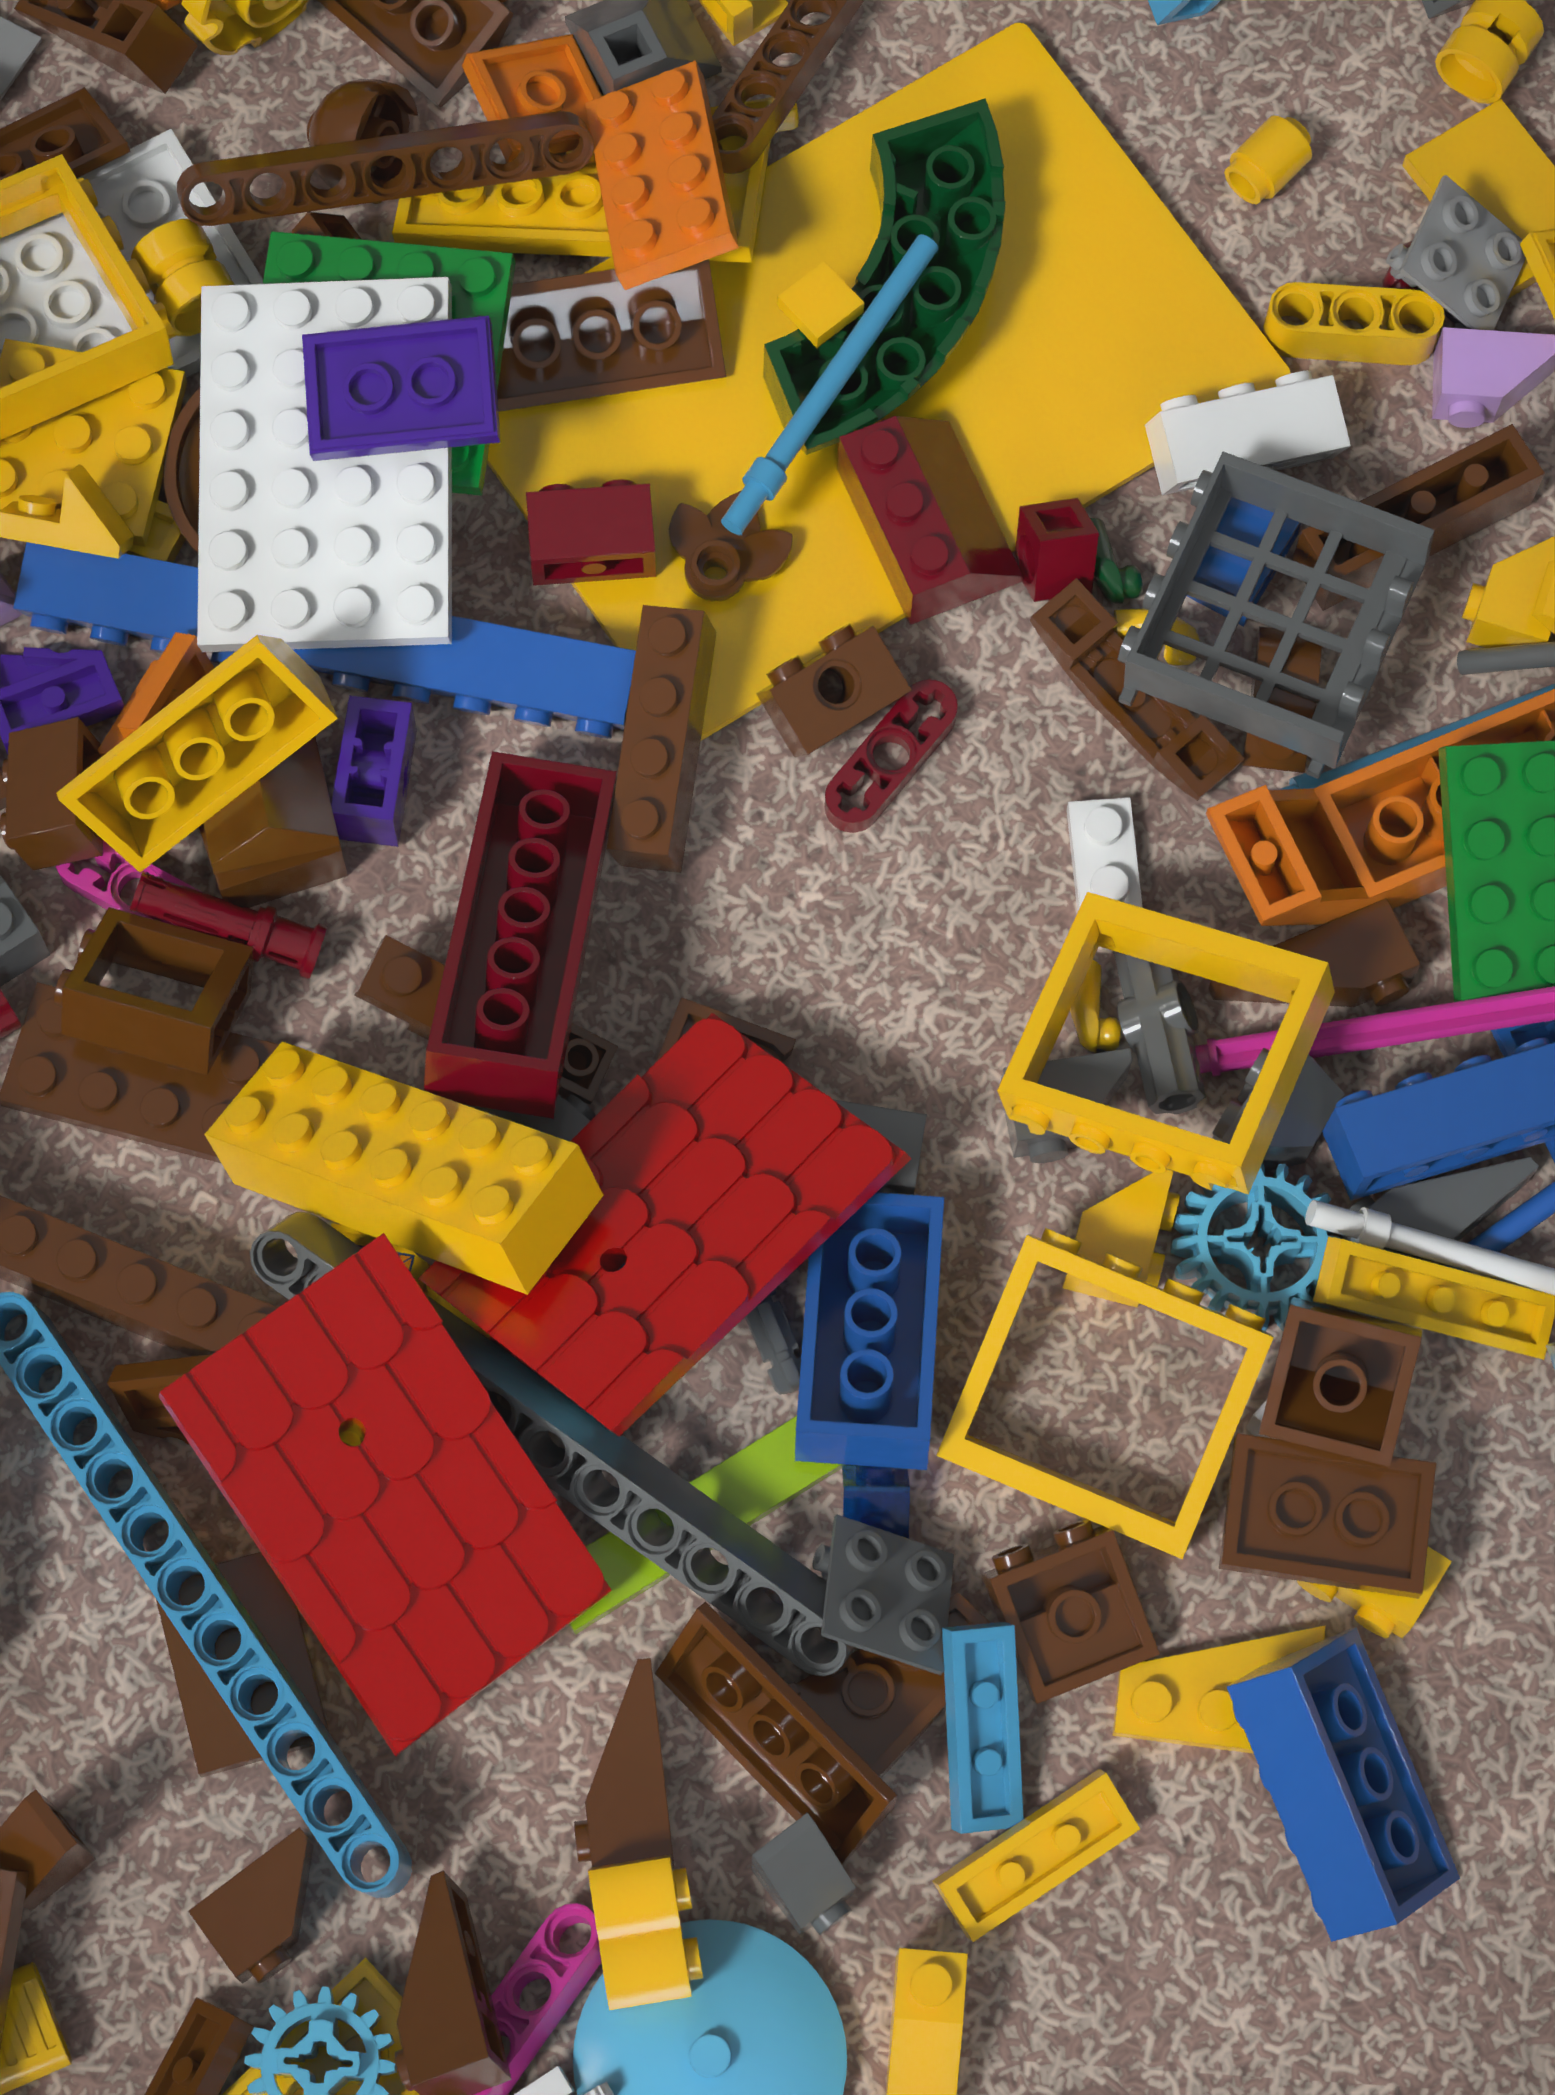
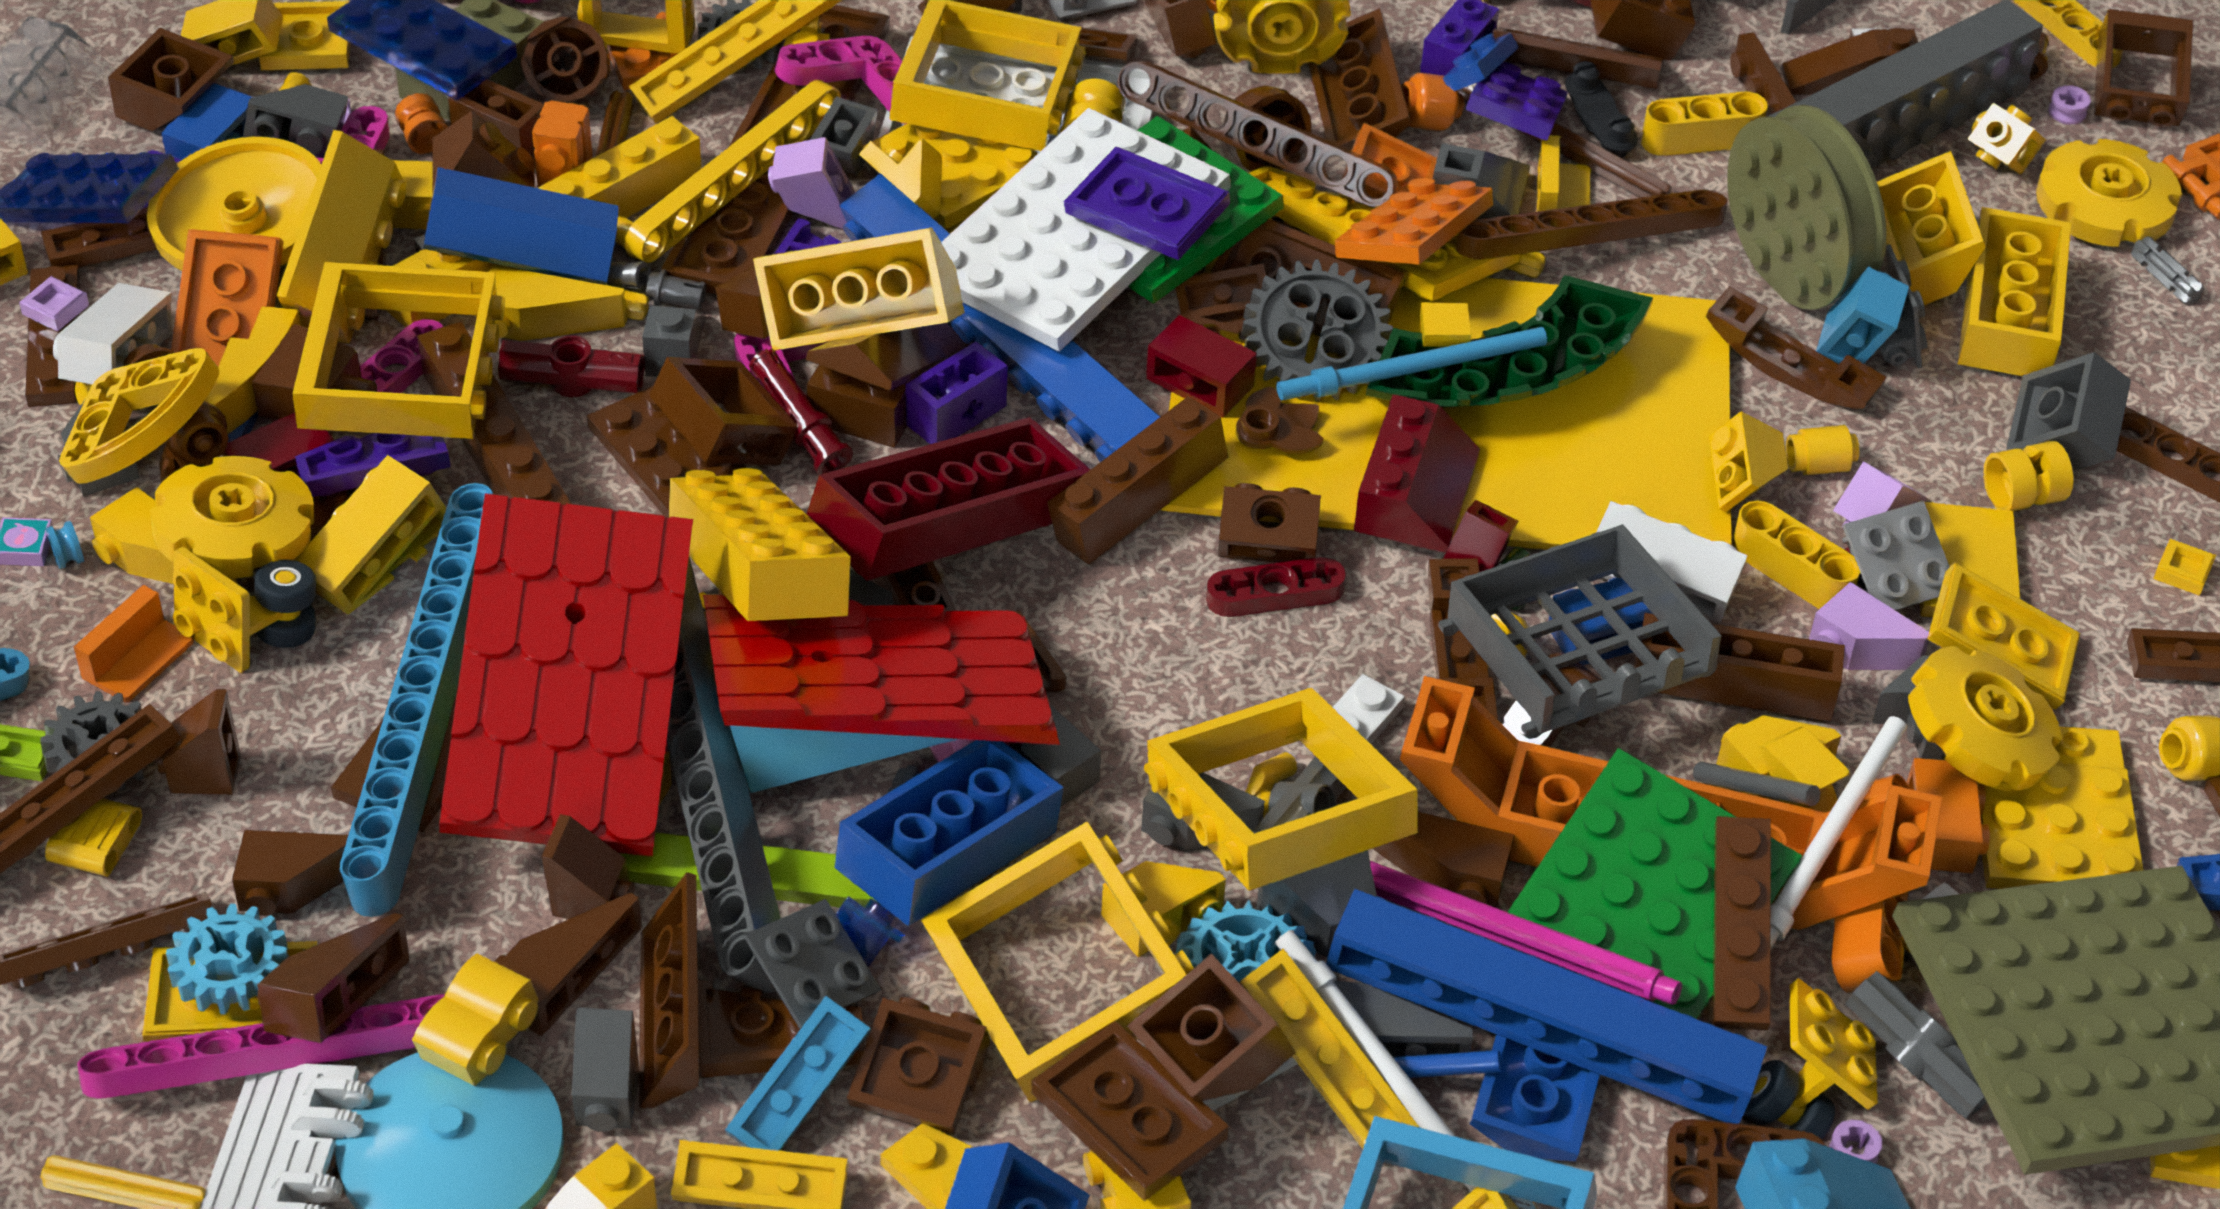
camera: 40 degrees right, 25 degrees down
(553, 425) = (1220, 299): none -> reddish brown wing
(577, 1673) = (581, 870): none -> reddish brown slope
(622, 413) = (1275, 318): none -> dark grey gear
(1145, 53) = (1788, 360): none -> reddish brown slope
(1224, 242) = (1745, 458): none -> yellow slope
(1376, 190) = (1874, 493): none -> lavender slope

